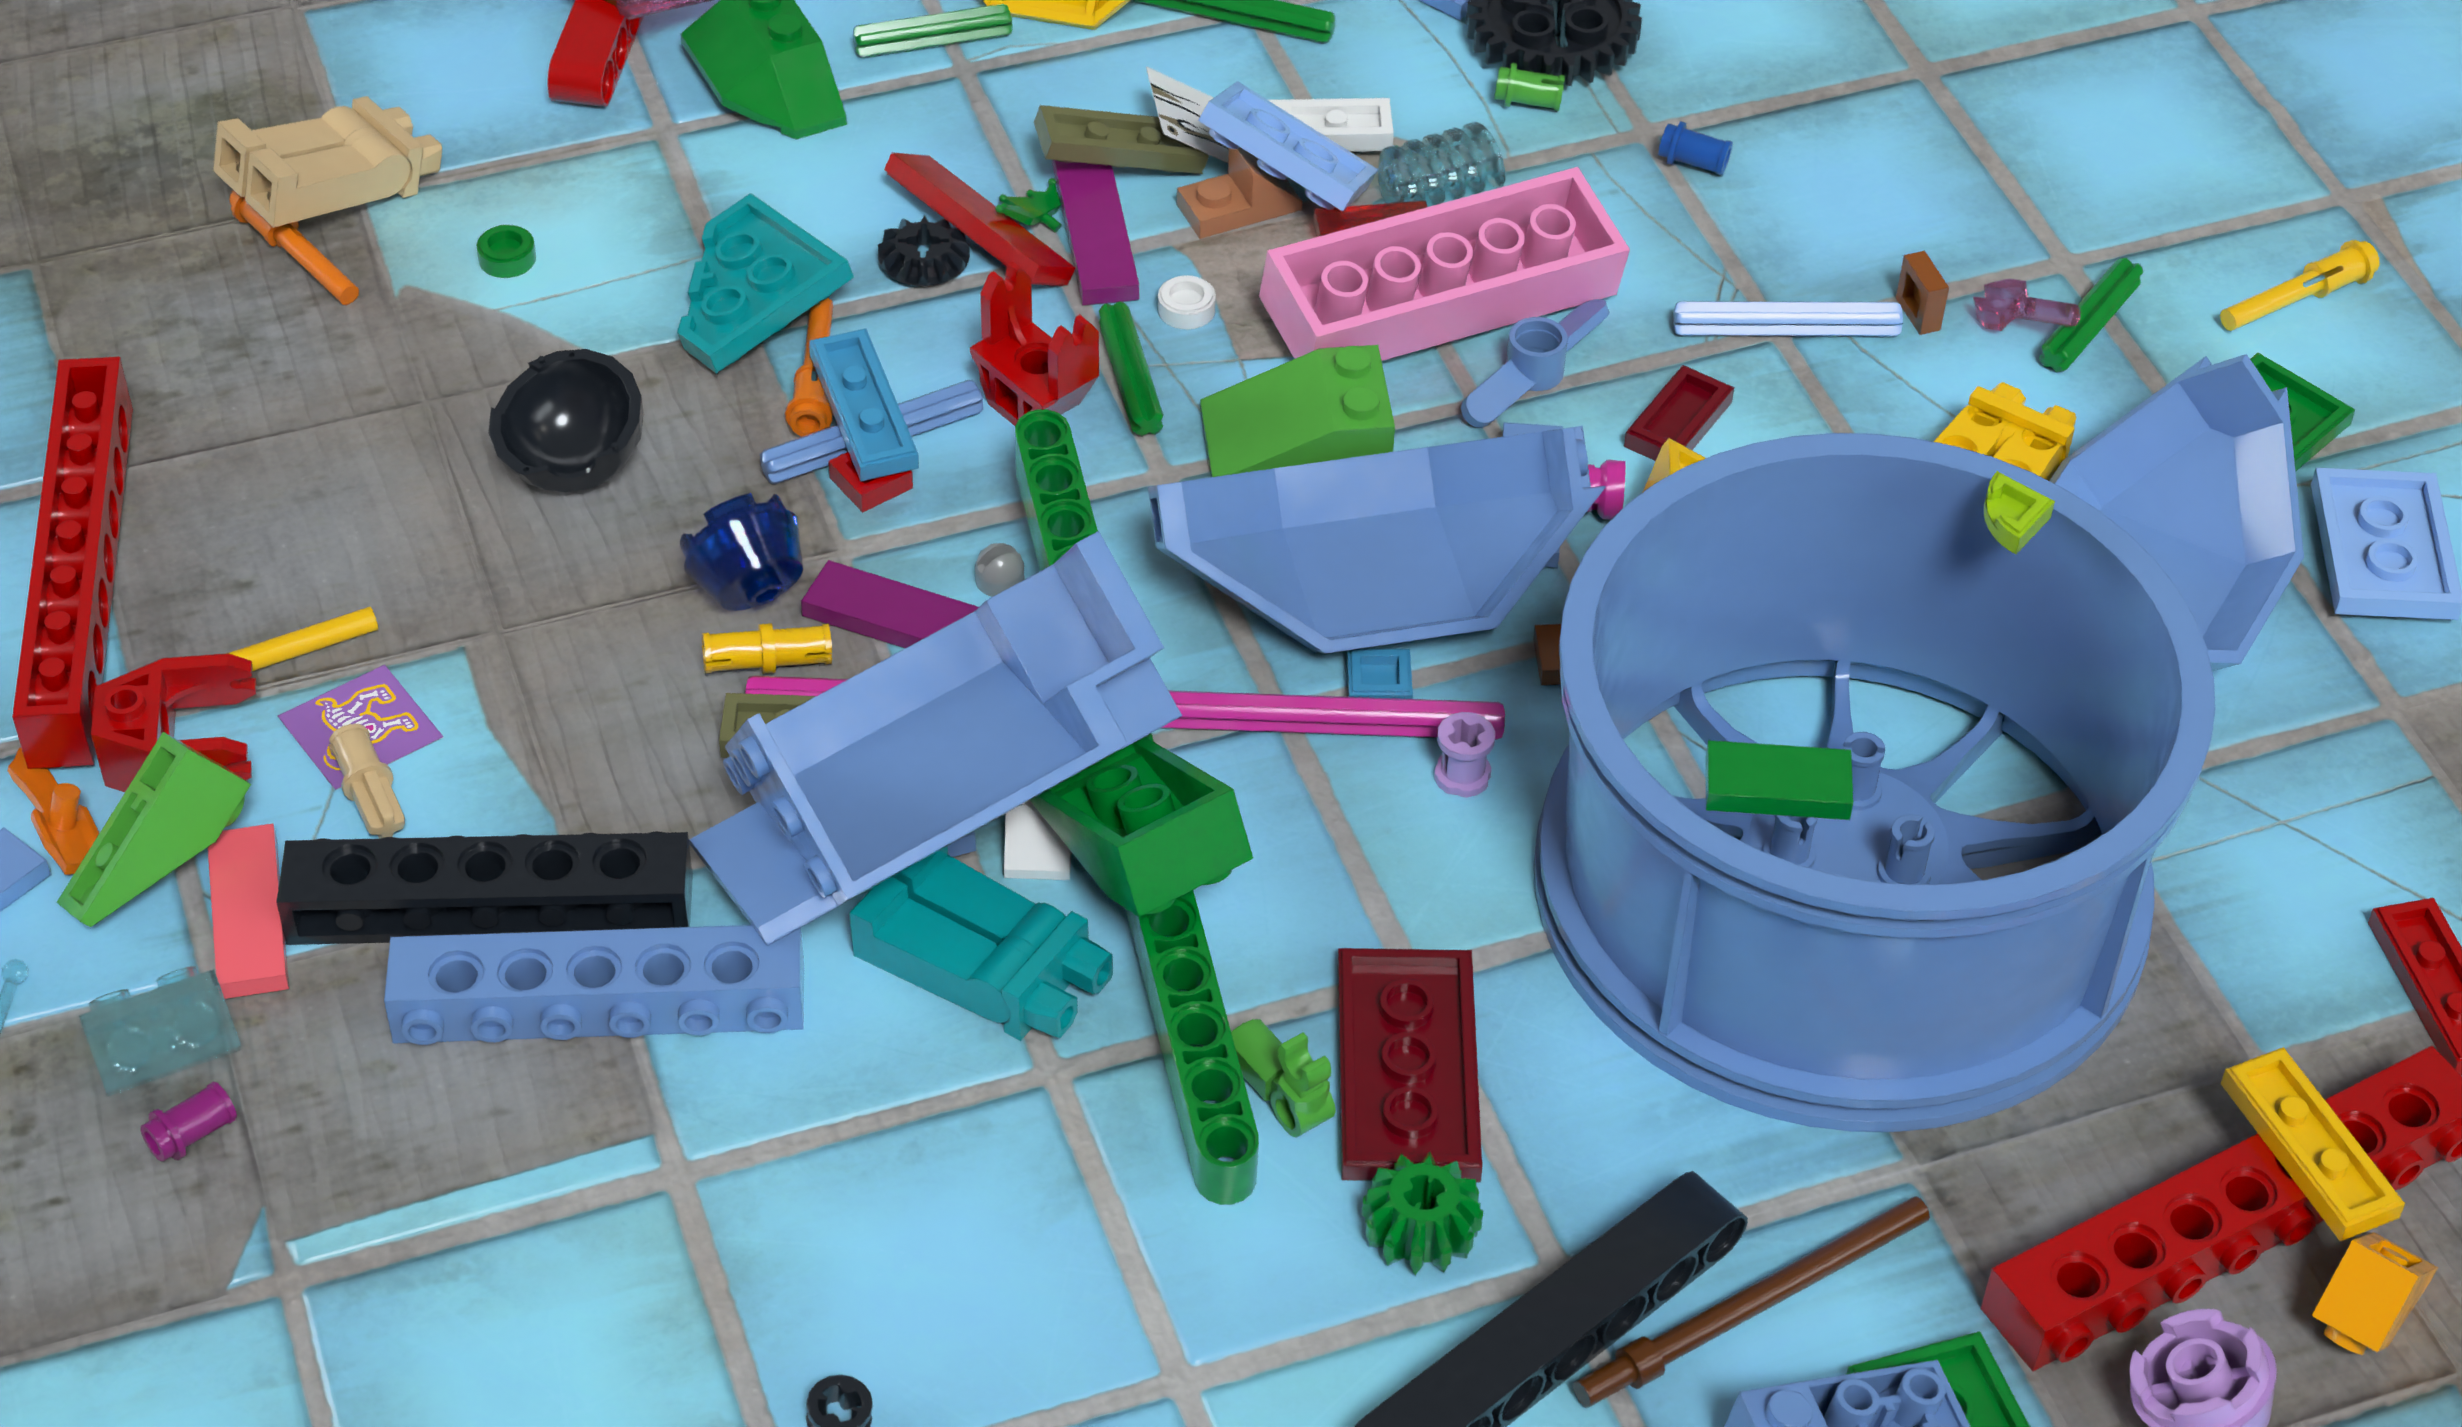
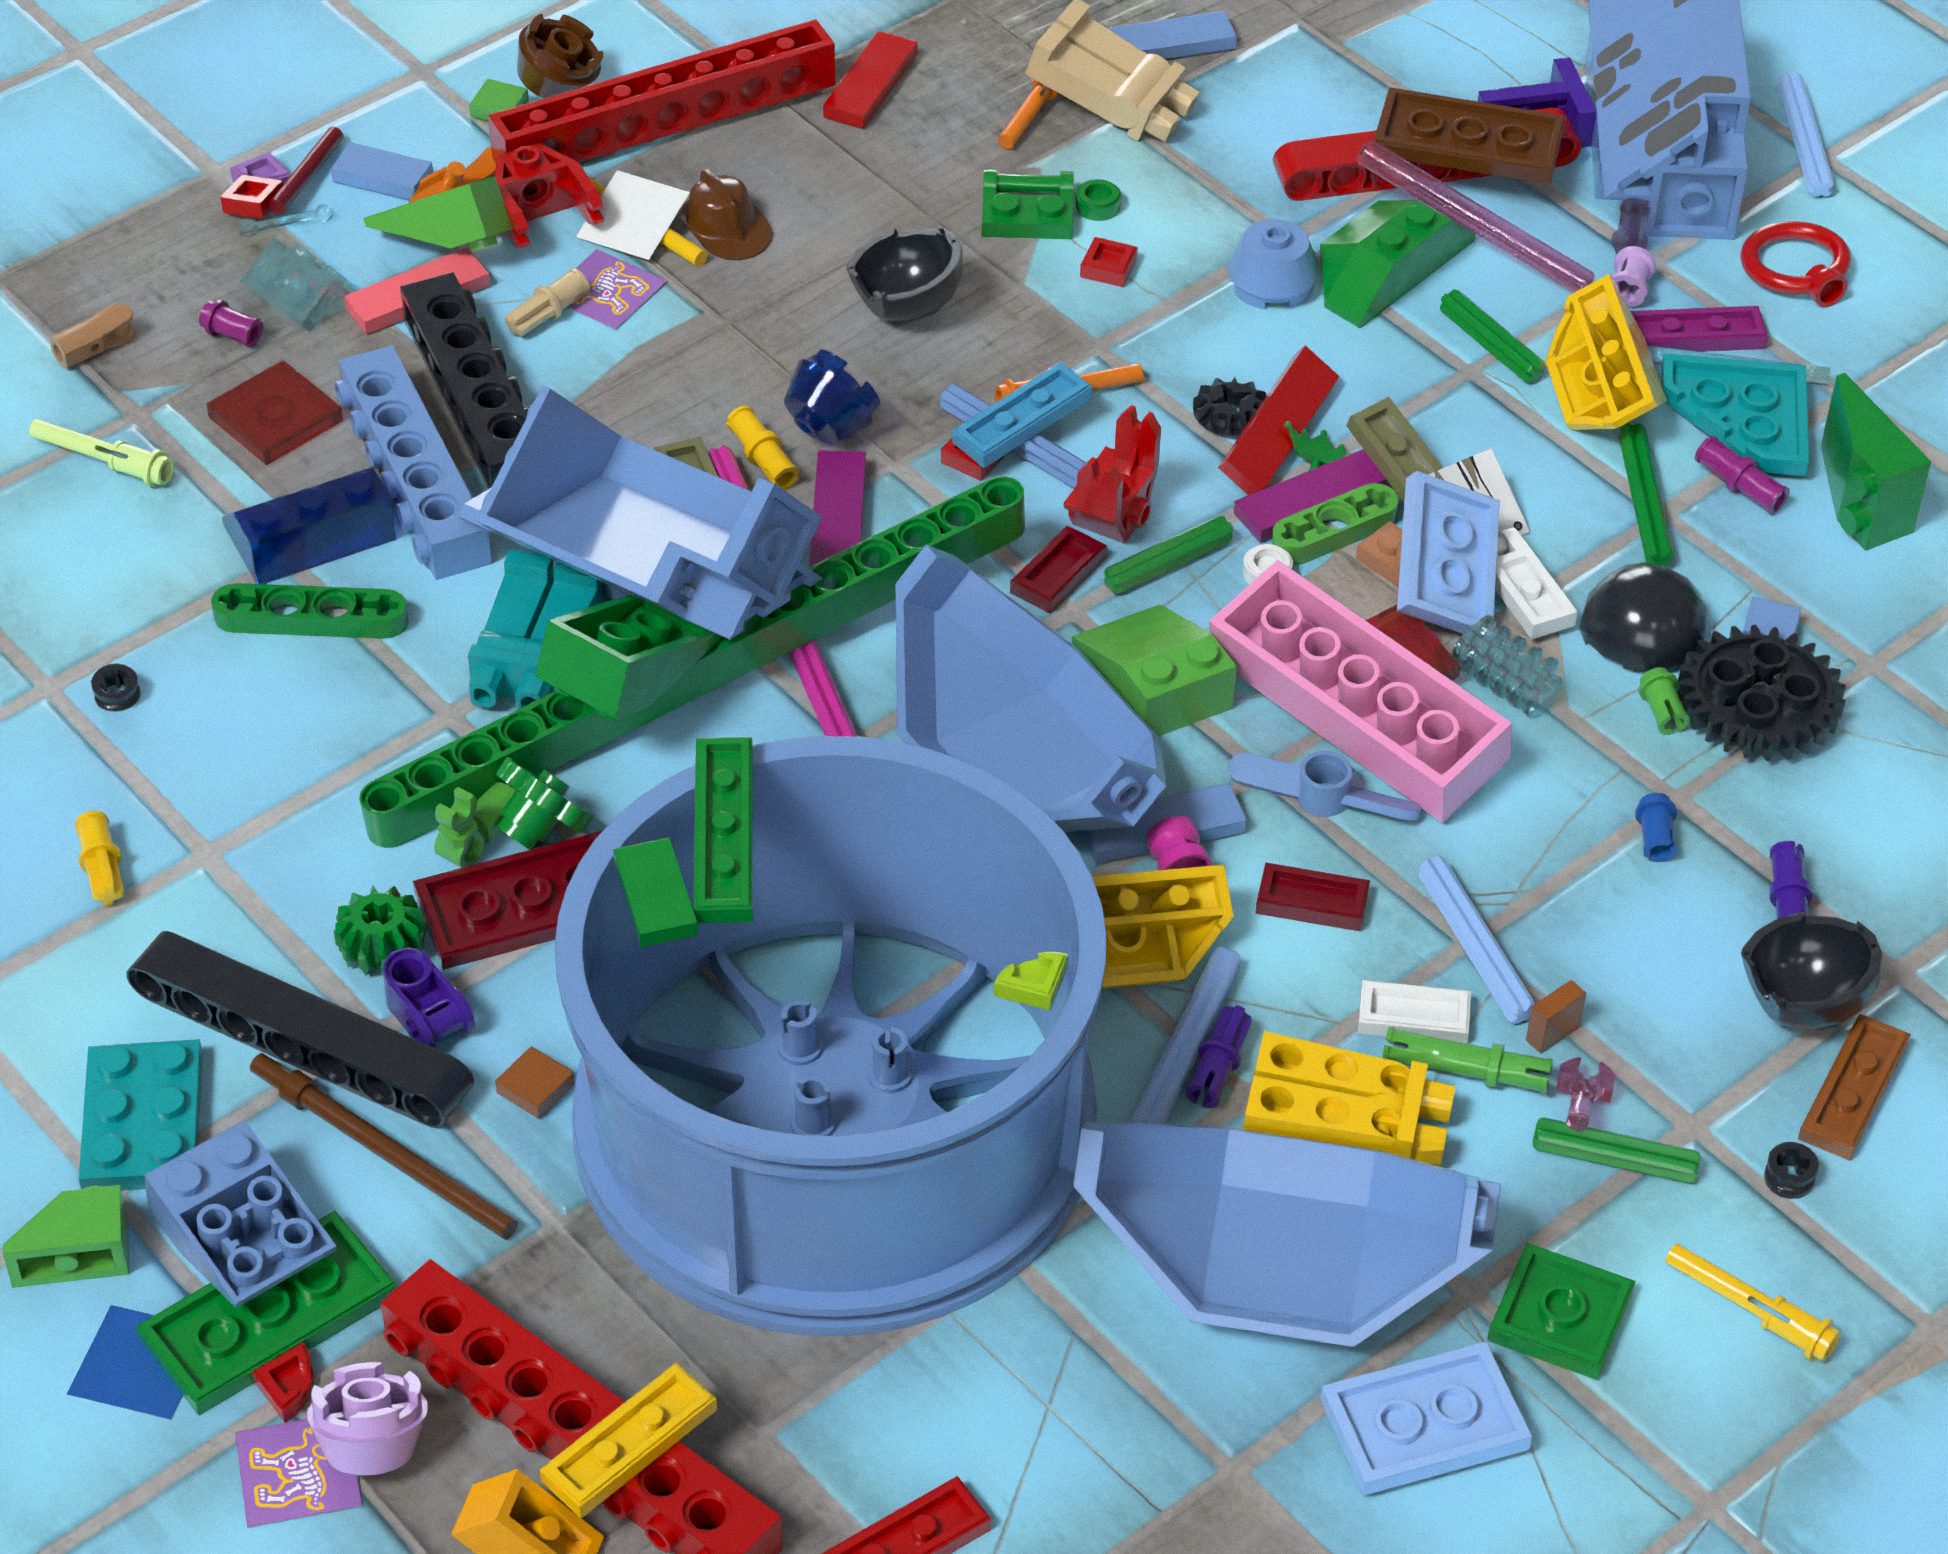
camera: 70 degrees right, 0 degrees up
(110, 1287) = (92, 336): none -> medium nougat bar
(154, 378) = (870, 79): none -> red tile
(273, 89) = (1181, 35): none -> medium blue tile
(277, 641) = (634, 215): none -> white sticker
(309, 575) = (725, 218): none -> reddish brown piece
(393, 1118) = (274, 412): none -> clear red tile
(417, 1285) = (150, 466): none -> yellowish green pin
(488, 319) = (1027, 215): none -> green plate
(619, 274) = (1108, 261): none -> red tile
(639, 1120) = (313, 526): none -> clear blue slope
(728, 142) = (1273, 264): none -> medium blue cone
(754, 281) = (1128, 326): teal plate -> none
(799, 1162) = (311, 604): none -> green beam
(1109, 466) = (1058, 569): none -> dark red tile
(1157, 214) = (1361, 509): none -> bright green beam
(1297, 996) = (537, 805): none -> green plant
(1413, 58) = (1645, 617): none -> black cylinder
(1553, 1197) = (423, 997): none -> dark purple piece
(1692, 695) = (723, 830): none -> green tile
(1706, 1129) = (534, 1082): none -> dark orange tile
(1818, 93) = (1789, 889): none -> dark purple pin
(1864, 392) = (1414, 1009): none -> white tile
(1951, 98) = (1812, 969): none -> black cylinder
(1961, 359) = (1469, 1060): none -> bright green pin
(2061, 142) = (1854, 1087): none -> dark orange tile
(2151, 213) = (1804, 1164): none -> black bush

